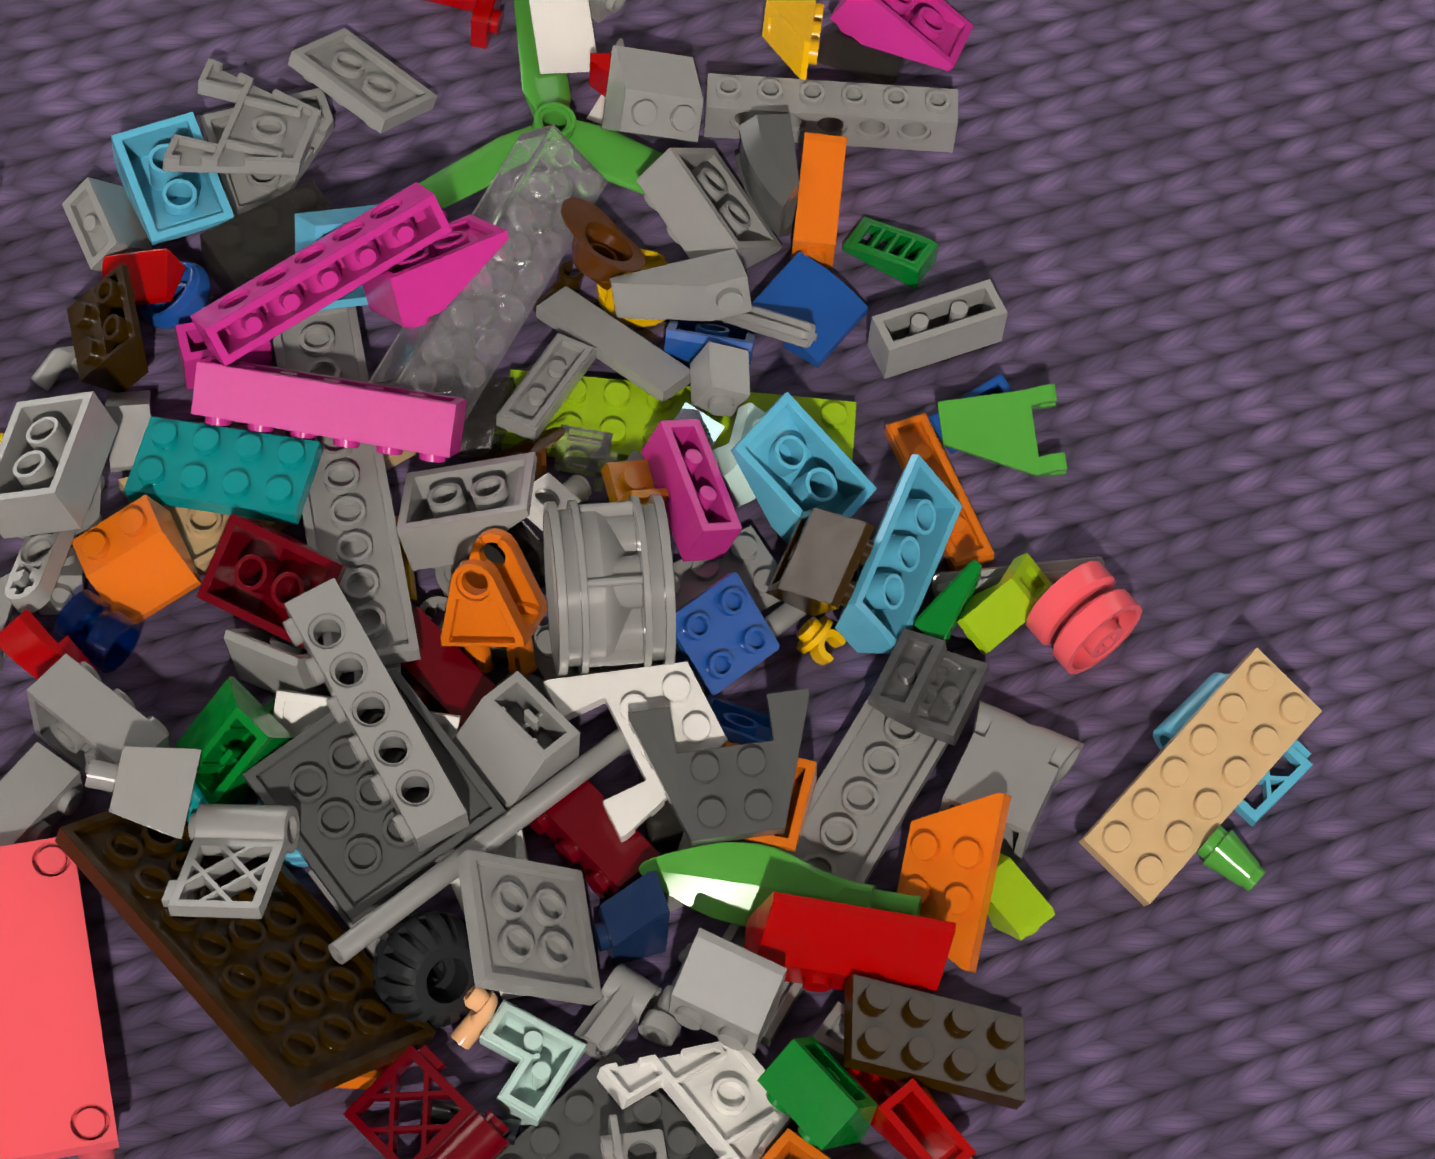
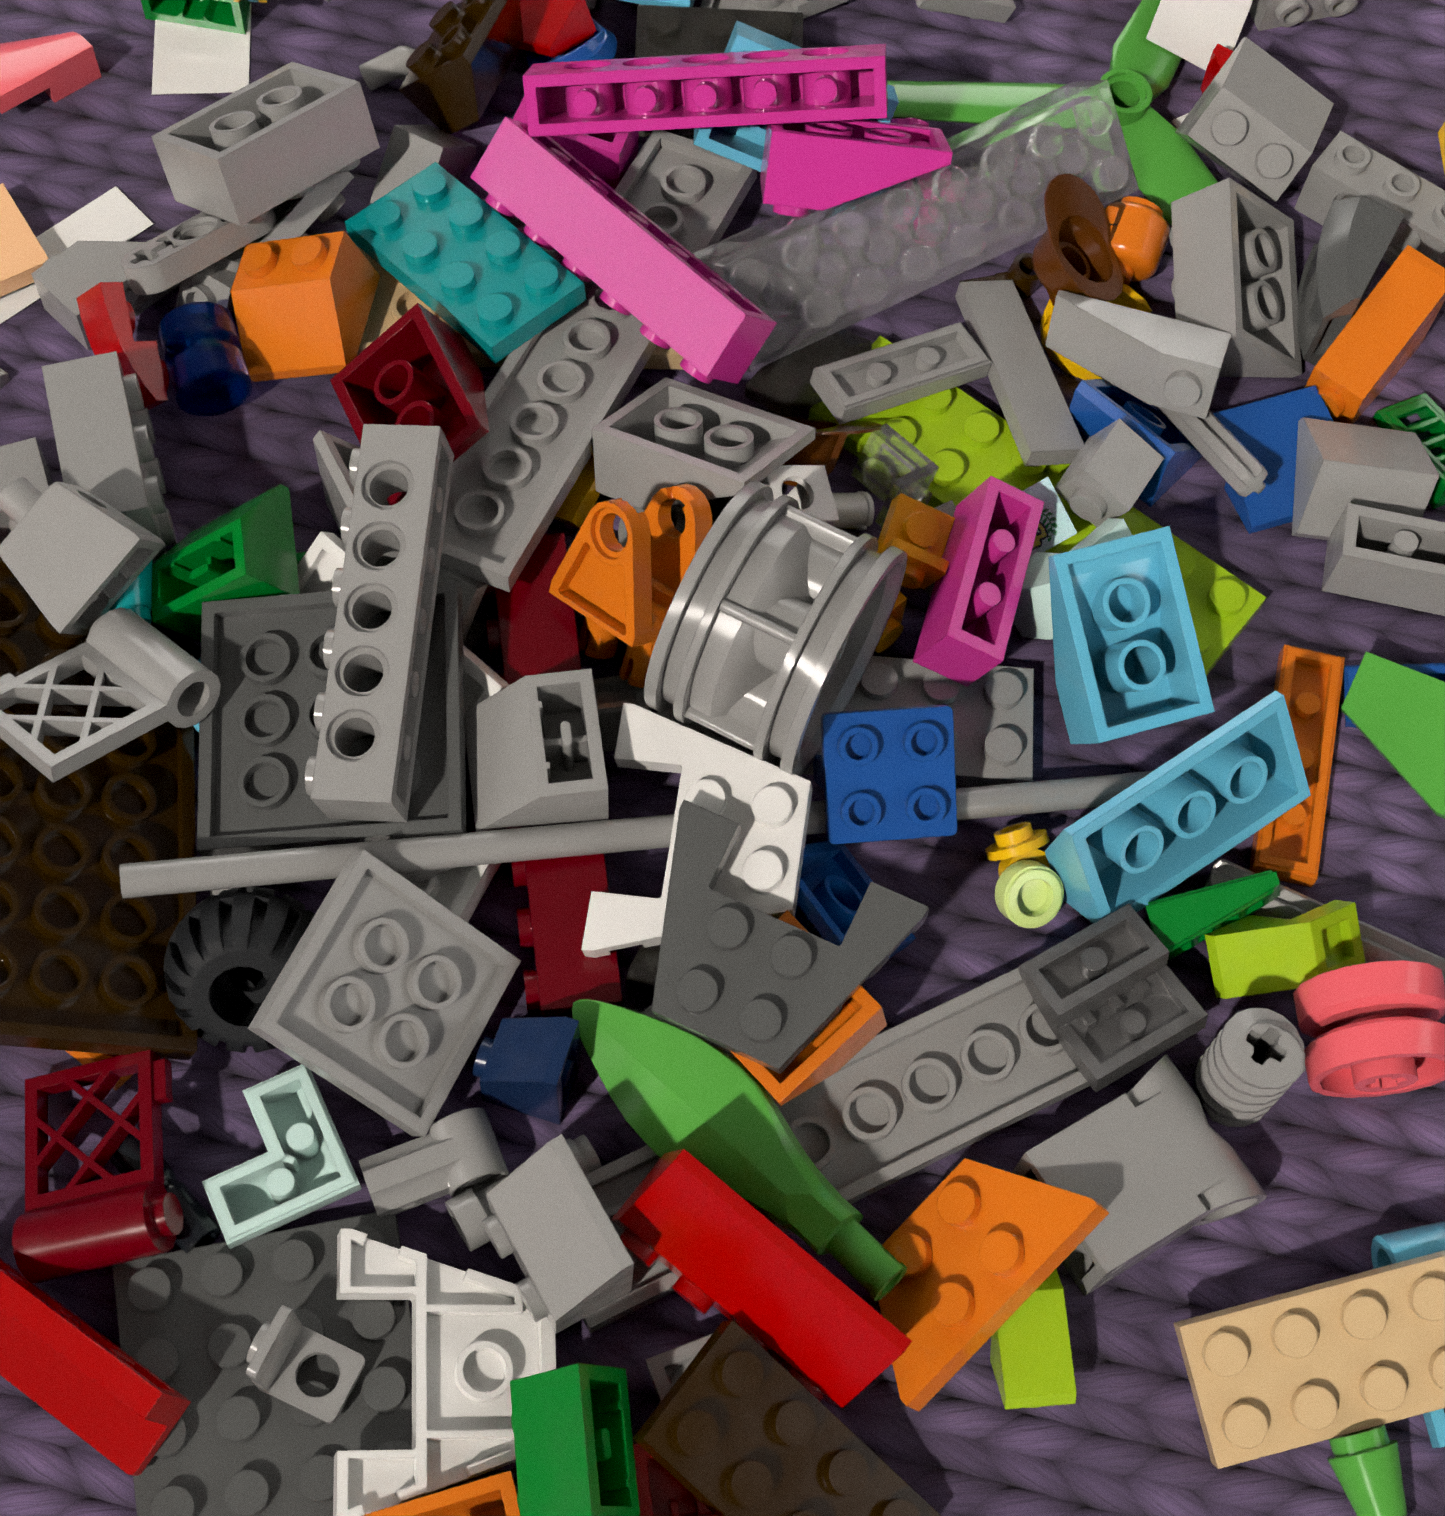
camera: 35 degrees right, 5 degrees up
(482, 1010) = (254, 1068): light nougat arm -> none
(627, 212) = (1137, 236): none -> orange head
(821, 561) = (1072, 757): slope -> none
(840, 659) = (1029, 893): none -> yellowish green tile
(859, 290) = (1360, 467): none -> light grey slope
(1029, 679) = (1249, 1067): none -> light grey piece

